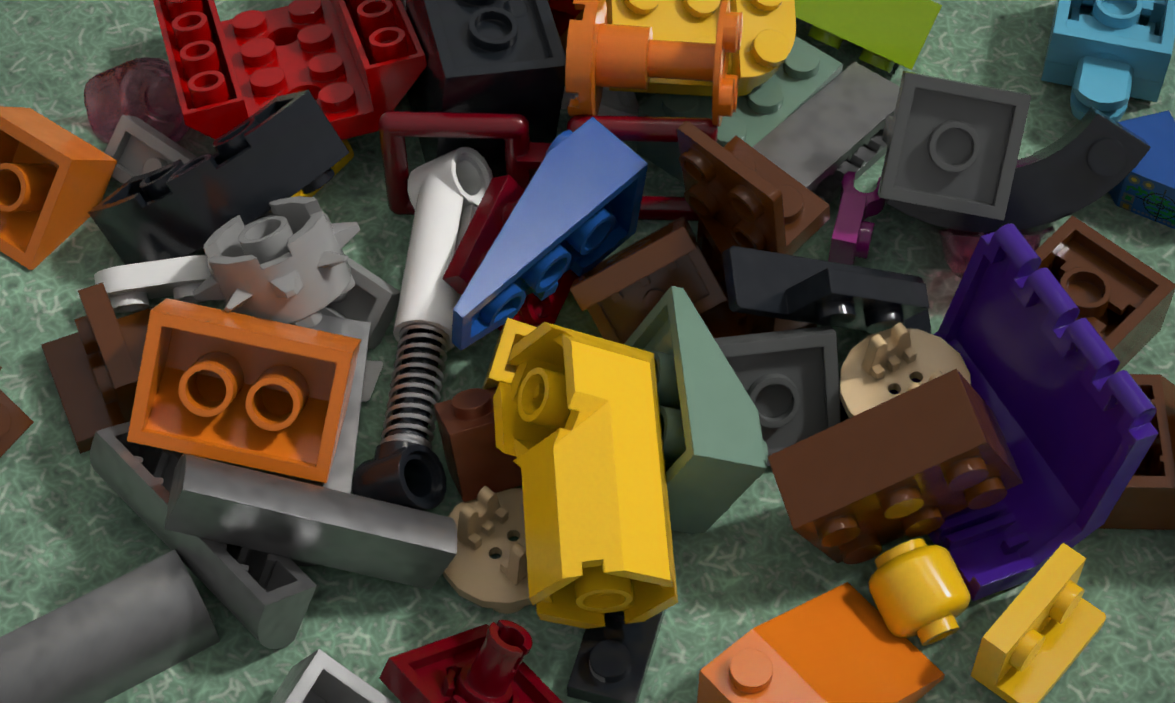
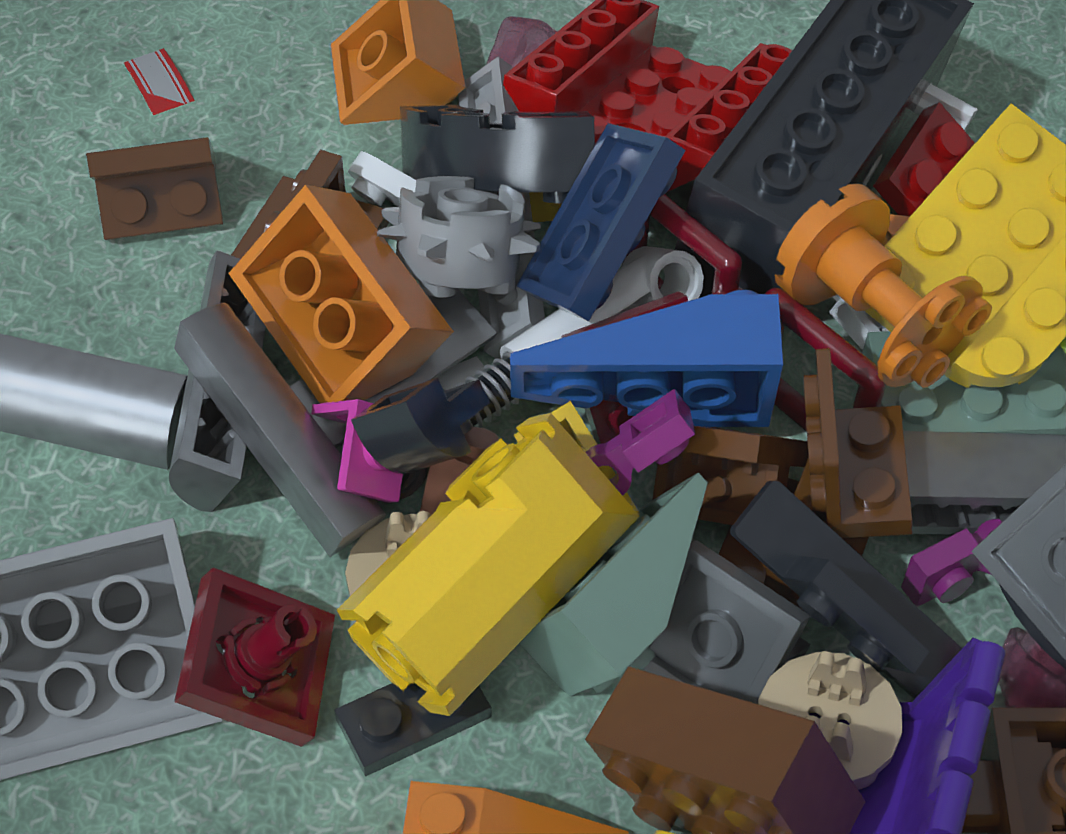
camera: 45 degrees right, 0 degrees up
(393, 165) = (601, 219): none -> dark blue plate
(405, 465) = (358, 469): none -> dark pink bracket
(436, 417) = (420, 425): none -> black brick
(605, 289) = (649, 437): none -> magenta plate

